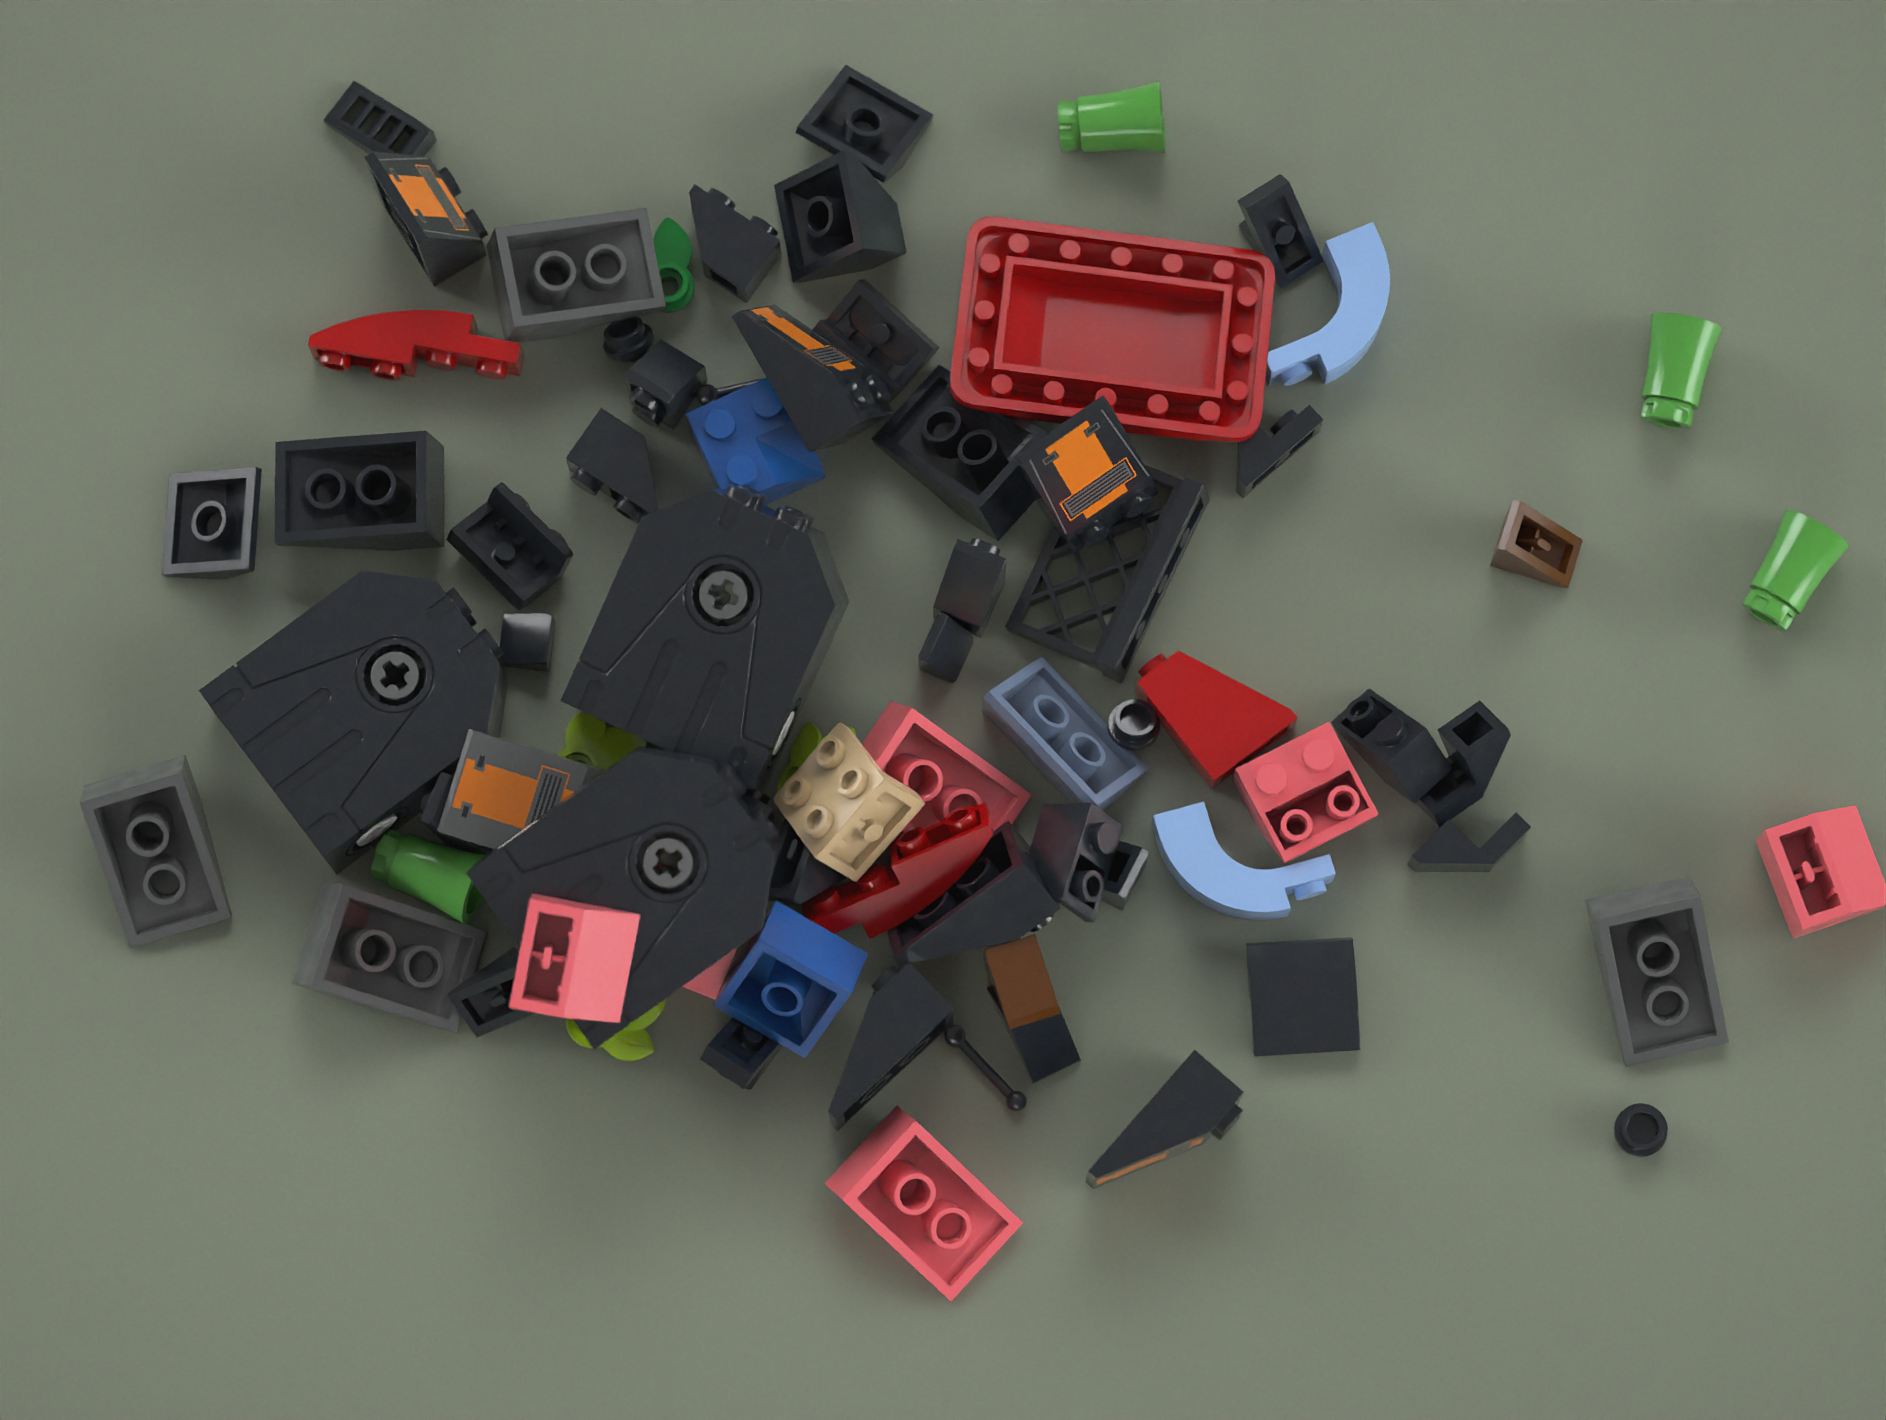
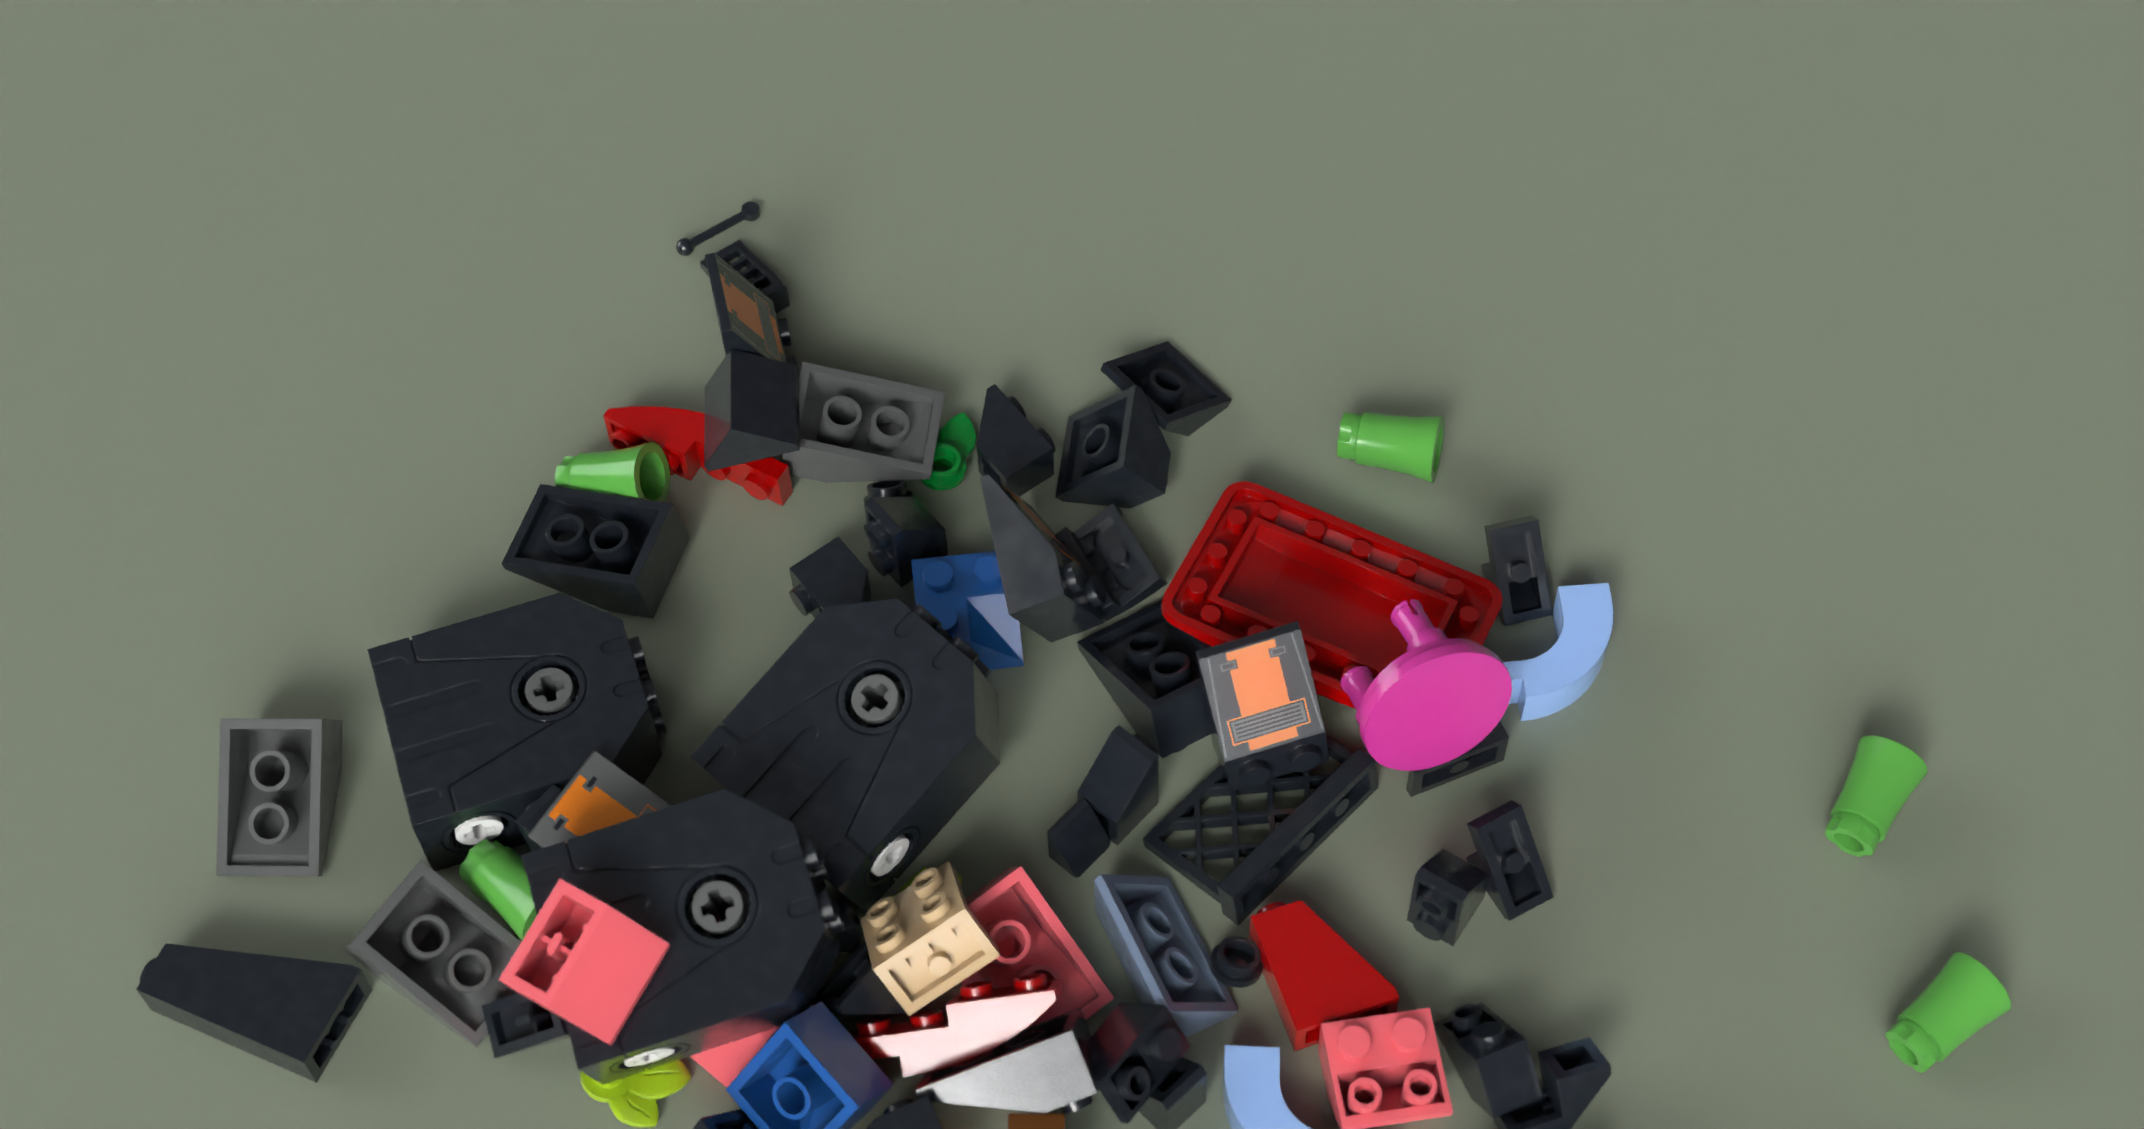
camera: 20 degrees right, 20 degrees down
(212, 523) = (457, 540): black slope -> none
(240, 1061) = (259, 1003): none -> black slope
(347, 408) = (626, 472): none -> bright green plant
(350, 40) = (749, 211): none -> black hinge
(464, 303) = (750, 410): none -> black slope
(511, 547) = (712, 634): black bracket -> none
(528, 640) = (694, 719): black slope -> none
(1248, 428) = (1429, 700): none -> dark pink piece
(1310, 599) = (1445, 896): none -> black slope
(1356, 544) = (1511, 860): none -> black slope
(1536, 546) = (1686, 916): reddish brown slope -> none

